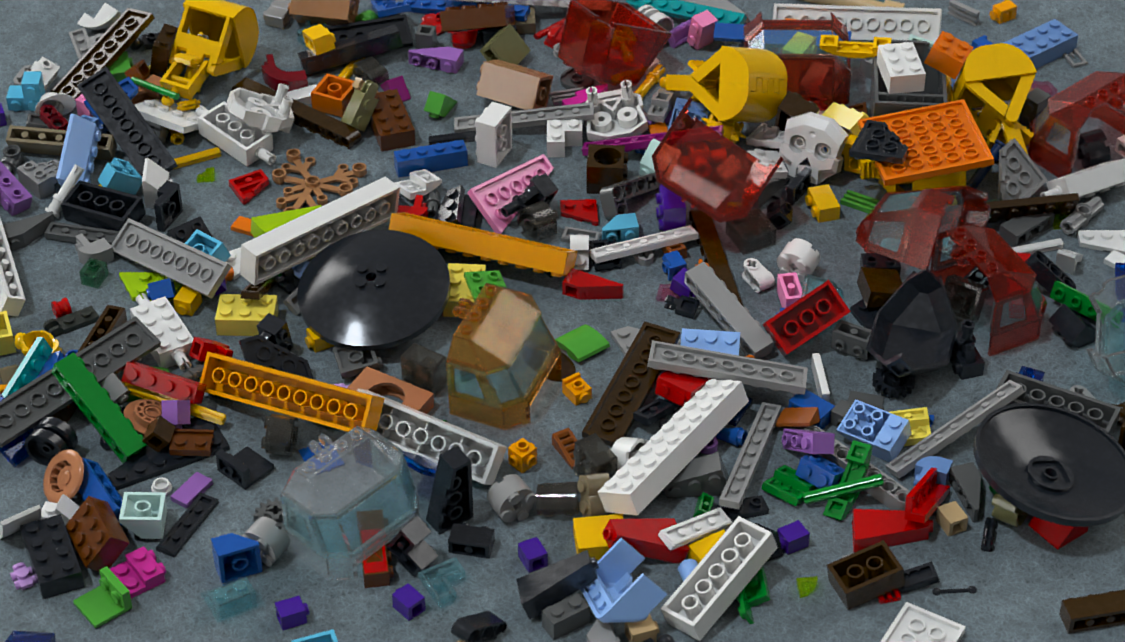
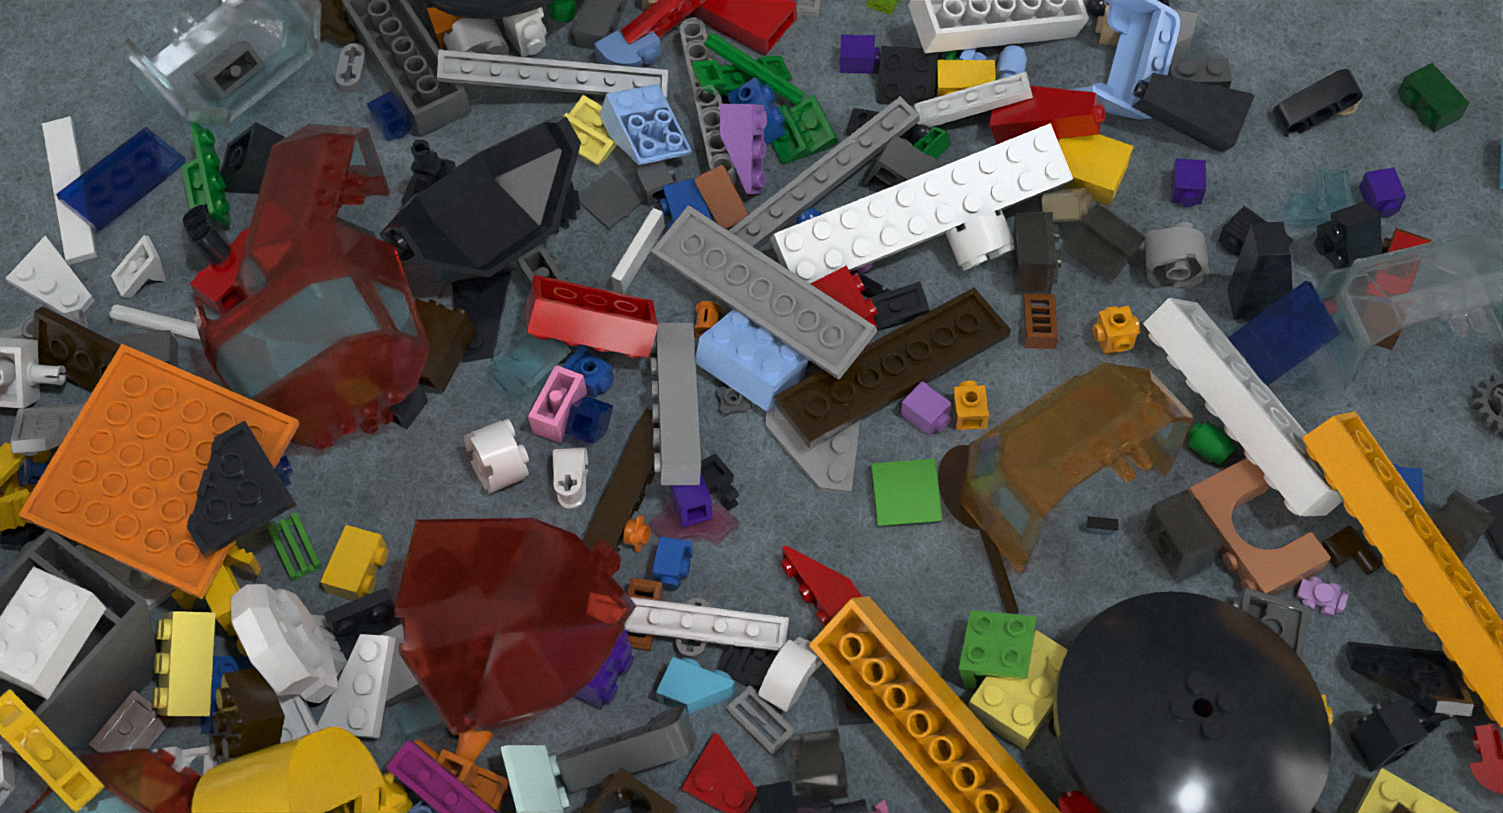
camera: 145 degrees left, 20 degrees up
(598, 376) = (926, 409): none -> medium lavender brick
(768, 296) = (588, 419): none -> clear blue brick

